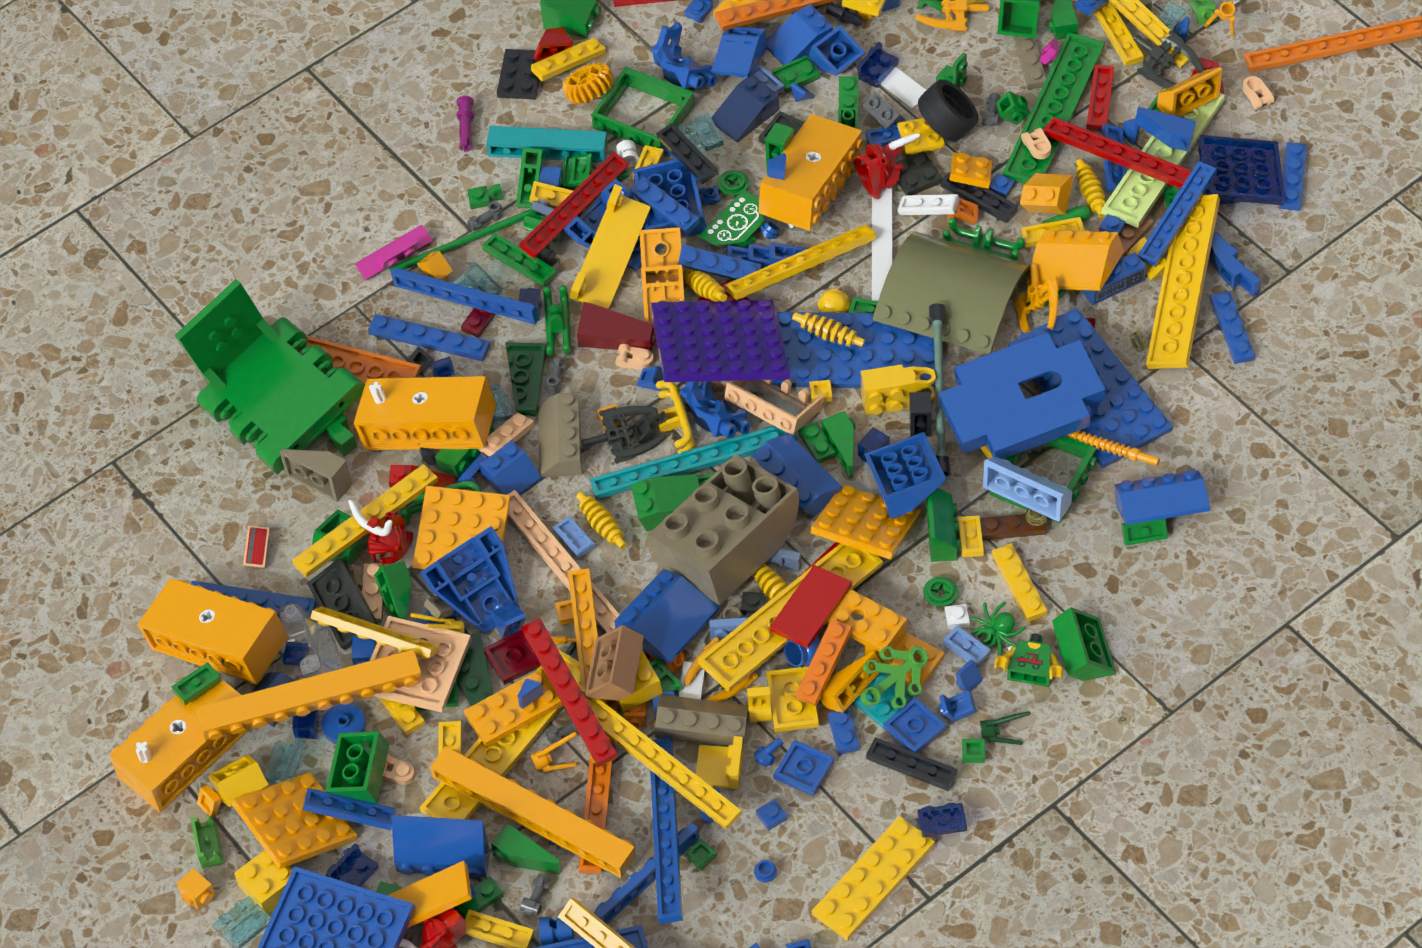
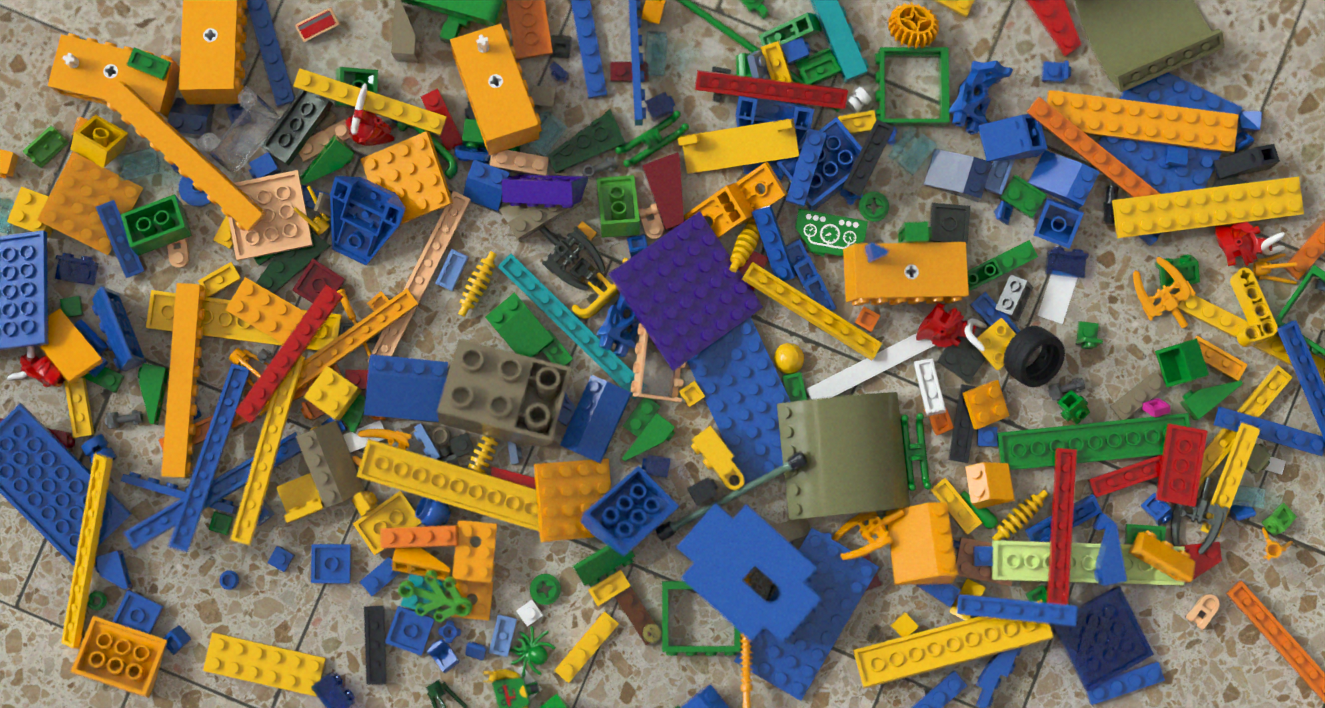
camera: 55 degrees right, 30 degrees up
(368, 630) = (271, 170): yellow plate -> none
(494, 213) = (741, 20): dark grey bar -> none
(507, 619) = (339, 266): blue slope -> none
(519, 260) = (702, 61): green plate -> none
(529, 692) = (276, 321): blue slope -> none
(548, 413) = (543, 190): none -> dark purple slope
(603, 374) = (618, 206): none -> bright green slope
(614, 664) = (322, 380): medium nougat slope -> none
(629, 815) = (209, 458): none -> blue plate
(764, 754) = (325, 529): blue plate -> none
(770, 230) = (836, 265): blue plate -> none
(810, 606) = (463, 501): red tile -> none
(828, 328) = (747, 357): yellow piece -> none
(834, 227) = (867, 319): none -> orange plate
(934, 688) = (454, 631): none -> blue plate
(973, 751) = (410, 687): green plate -> none
(1026, 488) = (665, 618): light blue slope -> none
(1038, 148) = (1037, 454): light nougat plate -> none
(1112, 51) = (1181, 465): none -> red plate
(1143, 87) = (1158, 510): none -> blue bracket
(1143, 315) = (904, 625): none -> yellow slope

